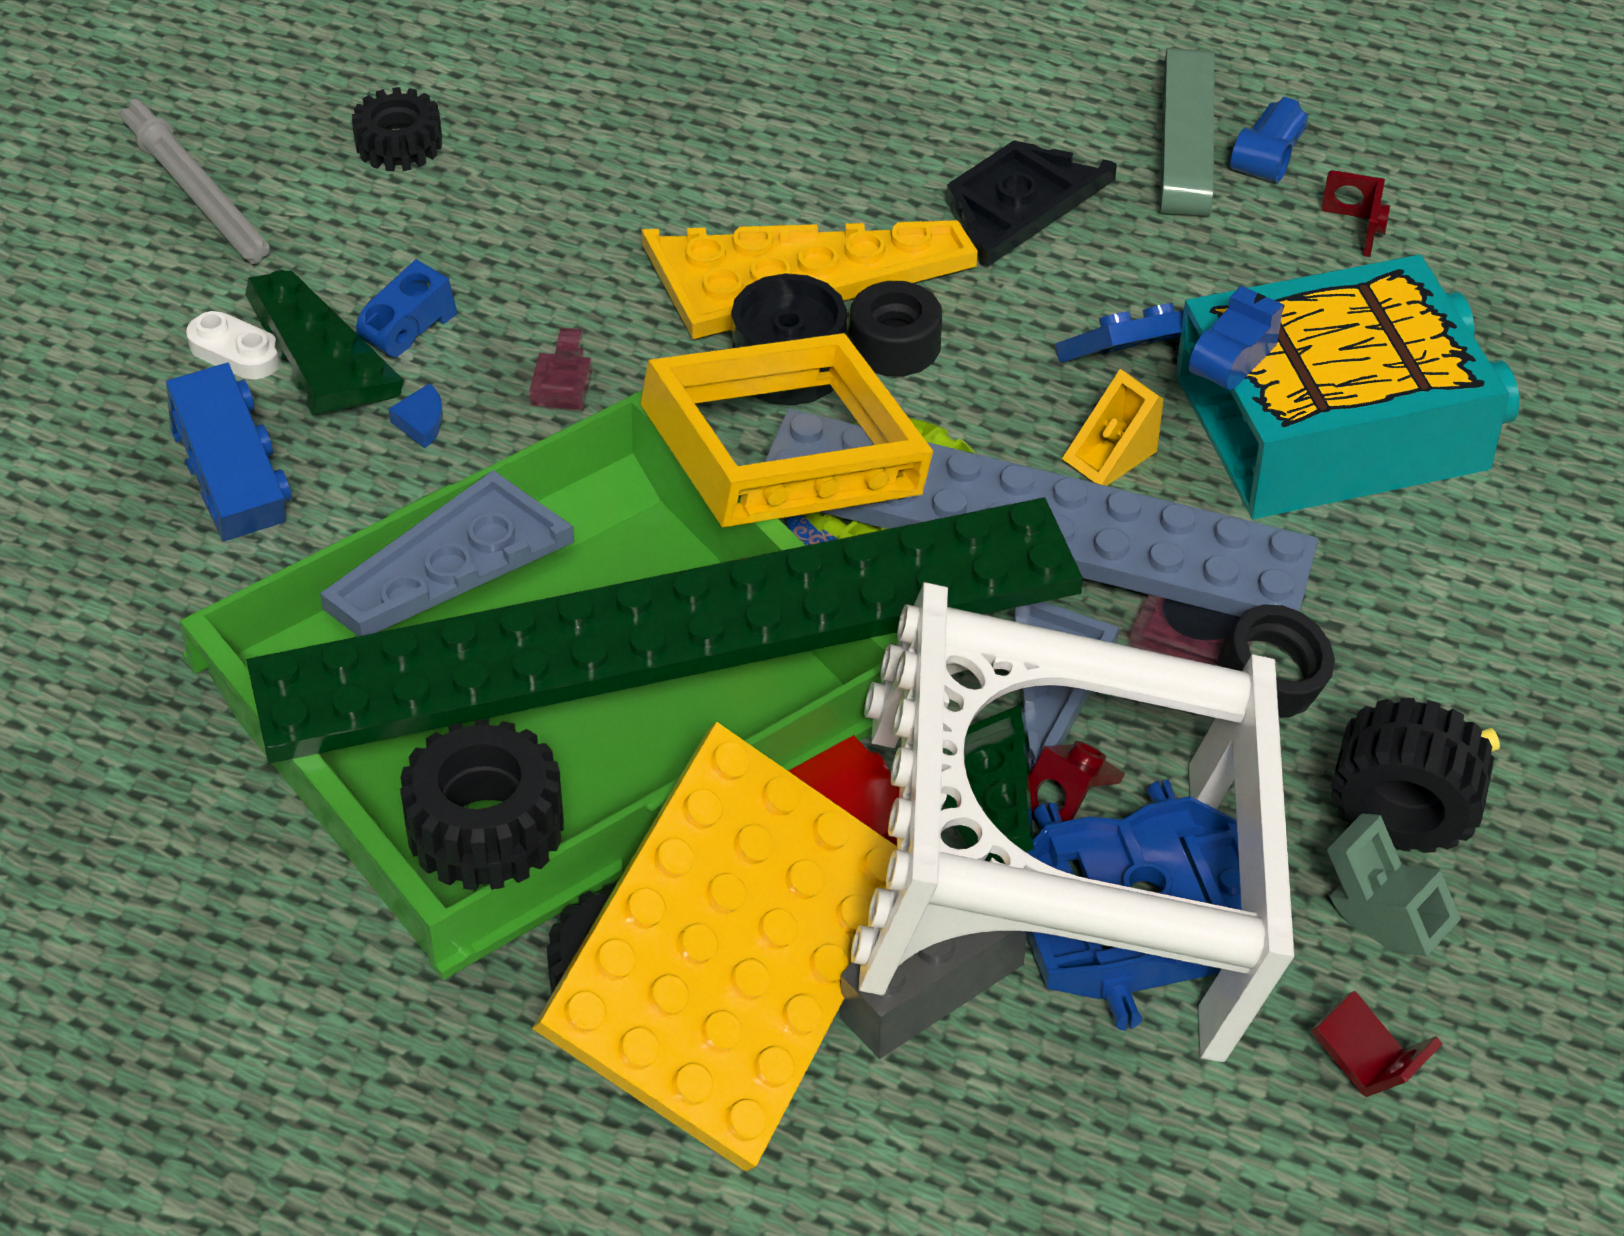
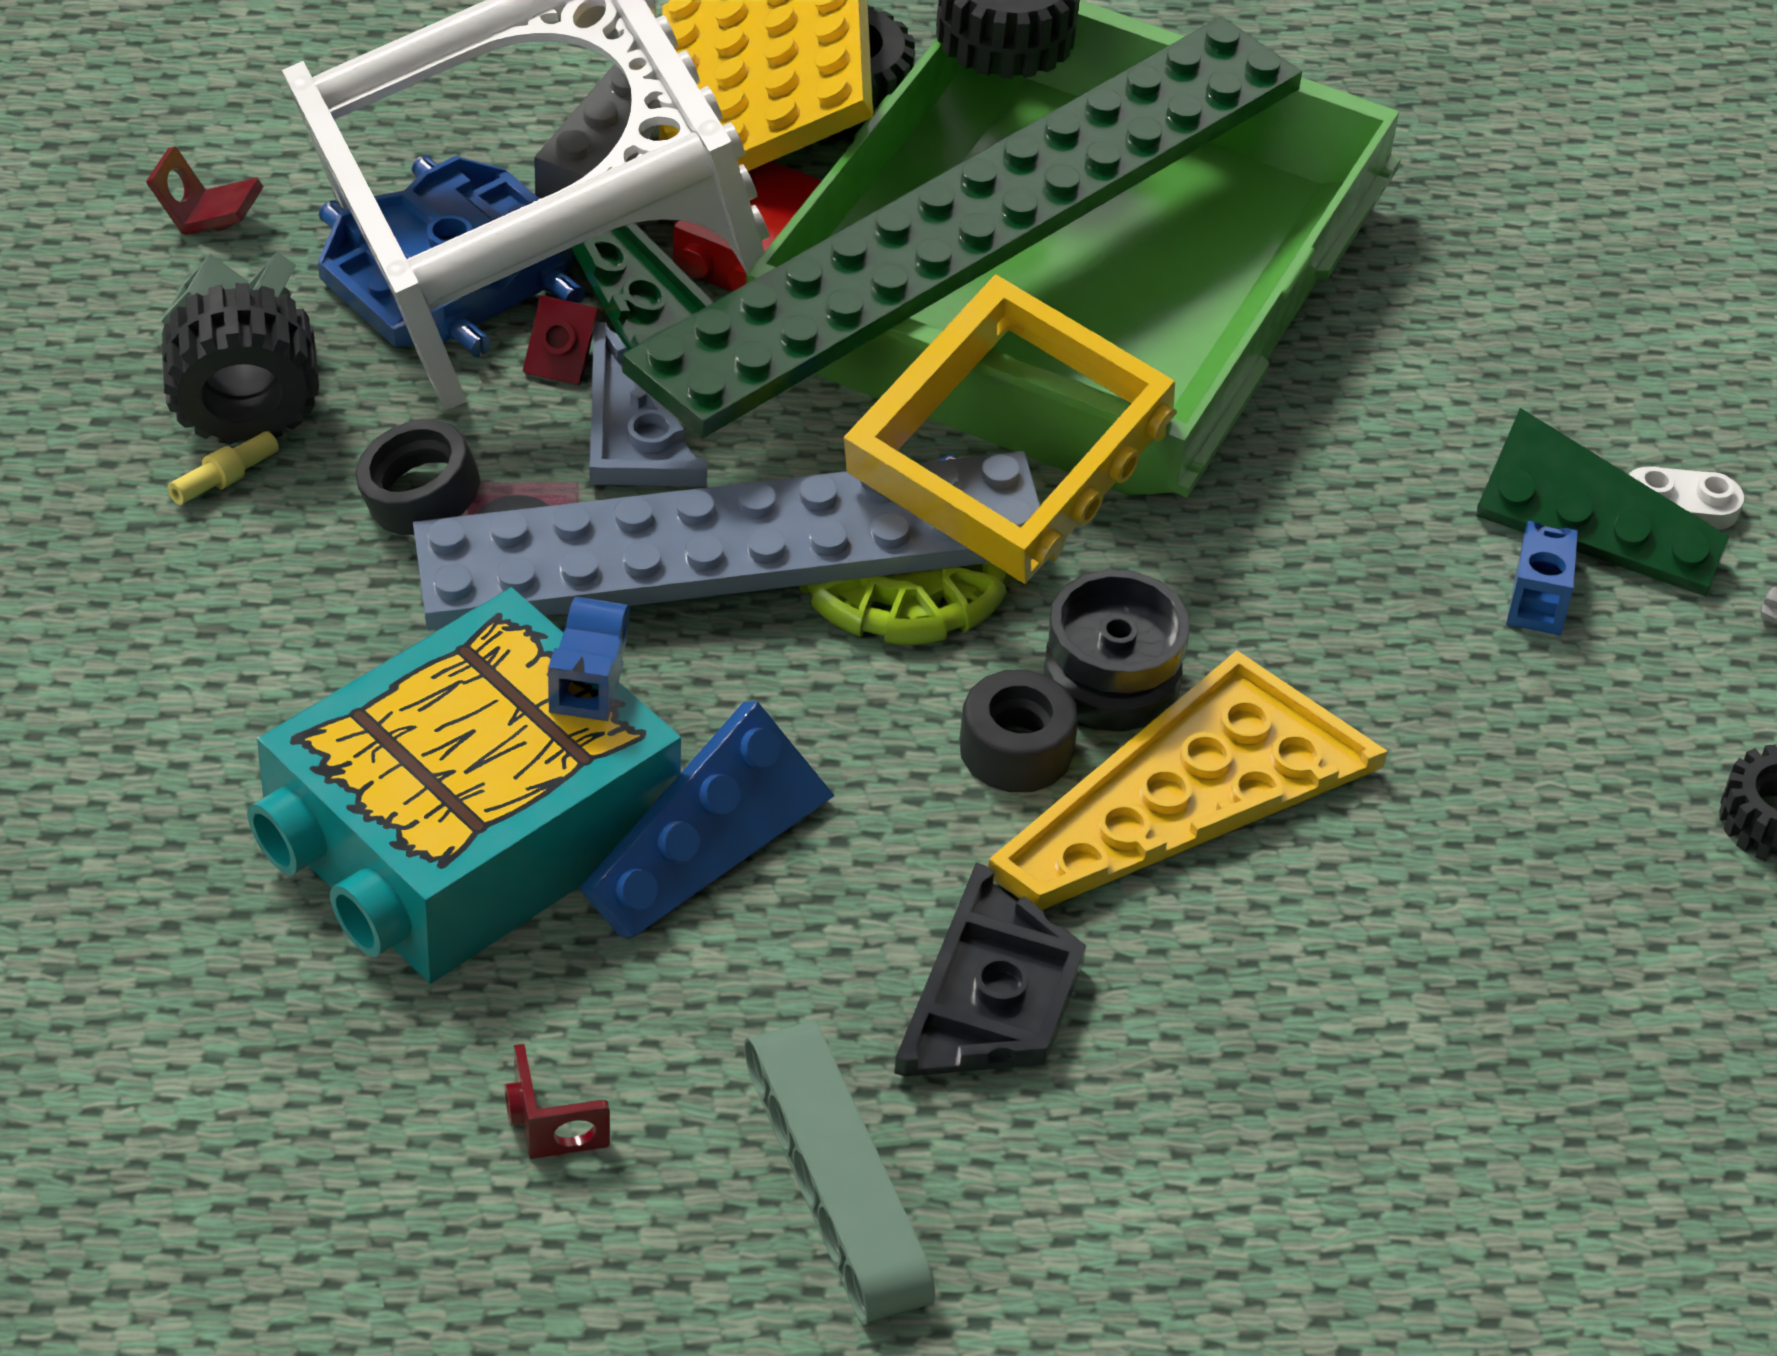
camera: 150 degrees right, 0 degrees up
(227, 451) = (1558, 350): blue wedge -> none
(419, 415) = (1429, 485): blue tile -> none
(451, 551) = (1215, 204): sand blue wing -> none
(562, 377) = (1327, 558): clear pink plate -> none
(1118, 431) = (695, 687): yellow slope -> none
(1269, 145) = (717, 1182): blue piece -> none

